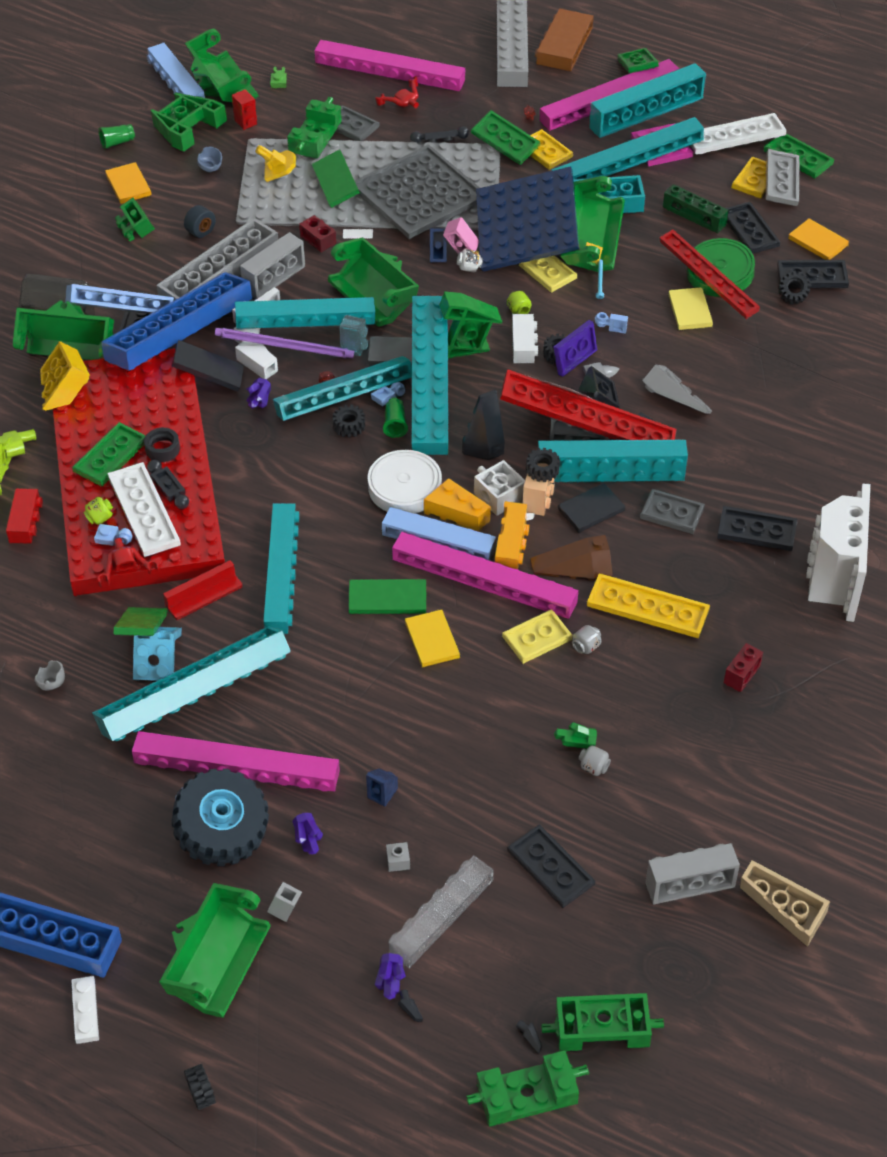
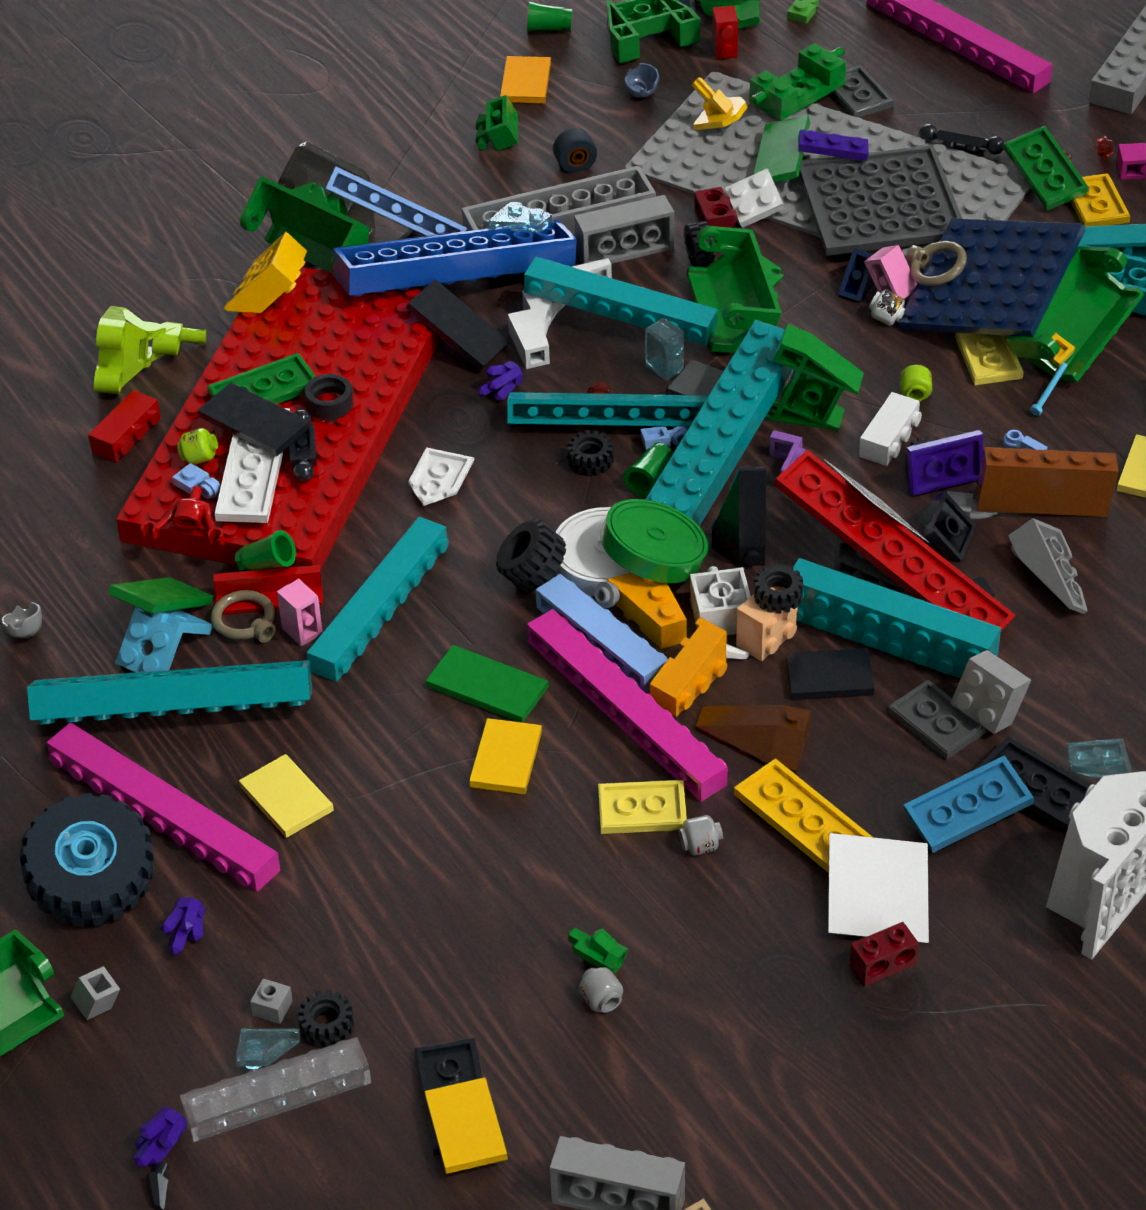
camera: 30 degrees right, 5 degrees down
(125, 478) = (253, 419): none -> black tile
(192, 566) = (267, 553): none -> green plant
(204, 278) = (521, 218): none -> clear light blue wing
(216, 618) = (260, 629): none -> dark tan piece
(239, 596) = (299, 612): none -> bright pink brick
(260, 471) = (439, 475): none -> white tile
(284, 343) = (572, 330): medium lavender piece -> none
(310, 721) = (286, 795): none -> light yellow tile
(323, 259) = (695, 253): none -> black tyre
(339, 214) = (755, 198): none -> white plate
(355, 497) = (530, 555): none -> black tyre
(357, 233) = (770, 230): white sticker -> none
(369, 164) = (833, 145): none -> dark purple plate
(381, 786) = (309, 905): dark blue slope -> none
(403, 97) = (947, 79): red piece -> none
(415, 887) = (264, 1046): none -> clear light blue wing
(432, 506) = (606, 594): none -> light grey plate
(439, 463) = (653, 540): none -> green brick
(440, 863) = (321, 1005): none -> black tyre
(472, 220) = (919, 256): none -> dark tan piece
(472, 372) = (786, 447): none -> medium lavender bracket
(575, 880) = (465, 1125): none -> yellow tile
(645, 338) = (1046, 481): none -> dark orange brick
(700, 481) = (990, 691): none -> light grey brick
(711, 628) = (877, 885): none -> white sticker
(729, 556) = (968, 804): none -> dark azure plate
(783, 499) = (1099, 758): none -> clear light blue wing

